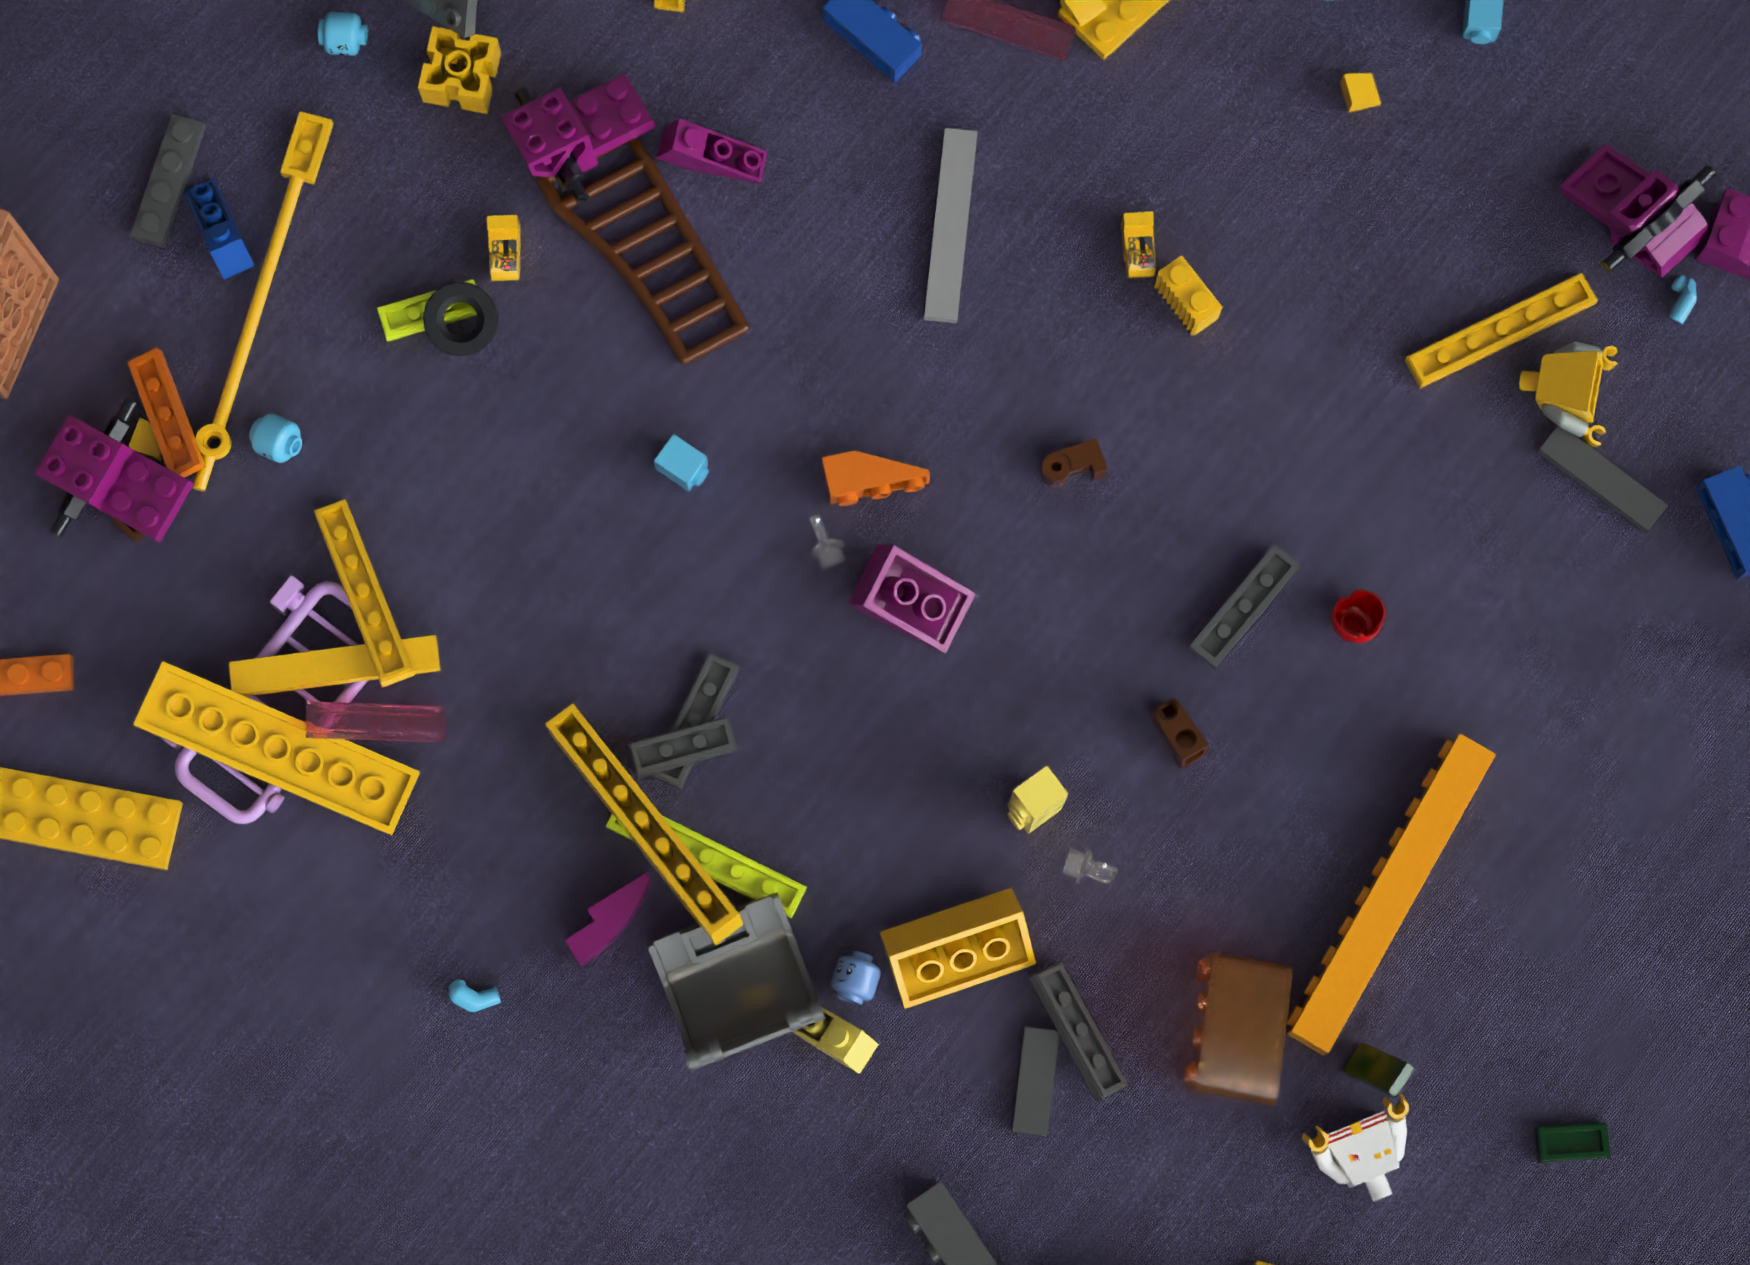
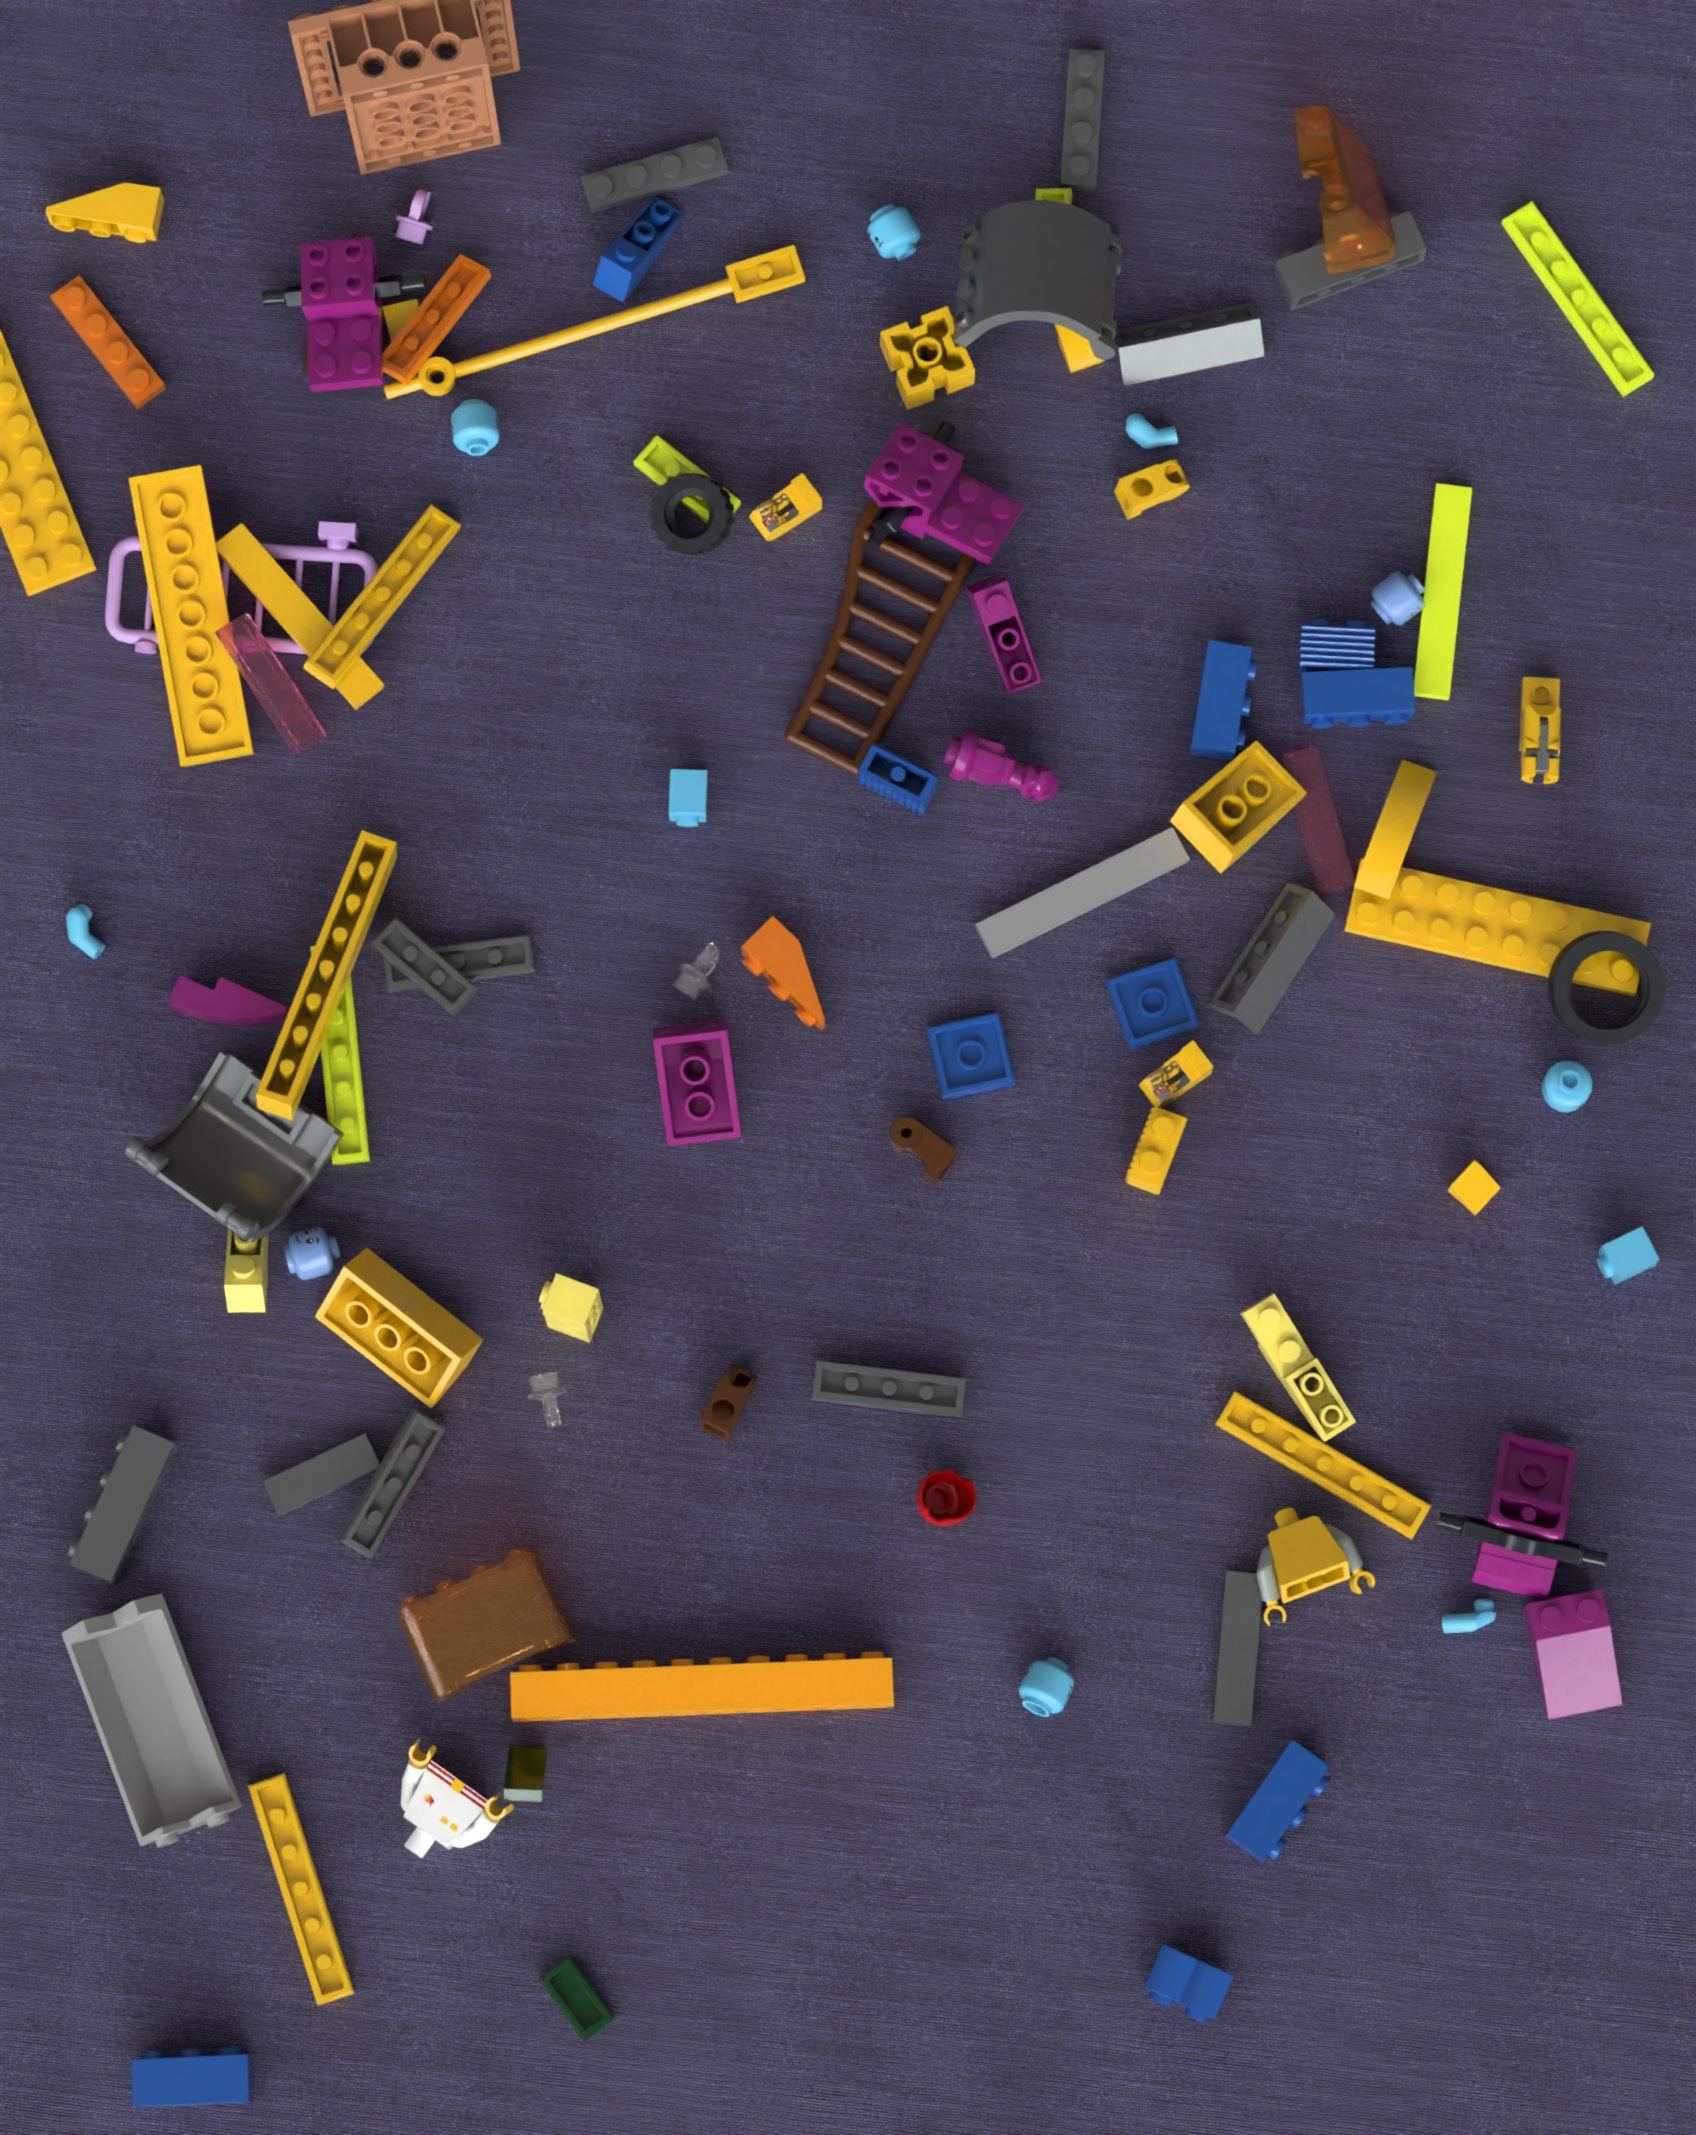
camera: 60 degrees right, 0 degrees up
(79, 386) = (413, 227): none -> lavender piece
(775, 299) = (898, 778): none -> blue brick
(810, 225) = (989, 765): none -> magenta animal
(963, 71) = (1237, 806): none -> yellow slope
(1023, 385) = (970, 1056): none -> blue tile
(1069, 229) = (1152, 1004): none -> blue tile
(1091, 120) = (1273, 957): none -> dark grey panel
(1422, 301) = (1297, 1368): none -> light yellow slope
(1548, 635) = (1046, 1687): none -> medium azure head

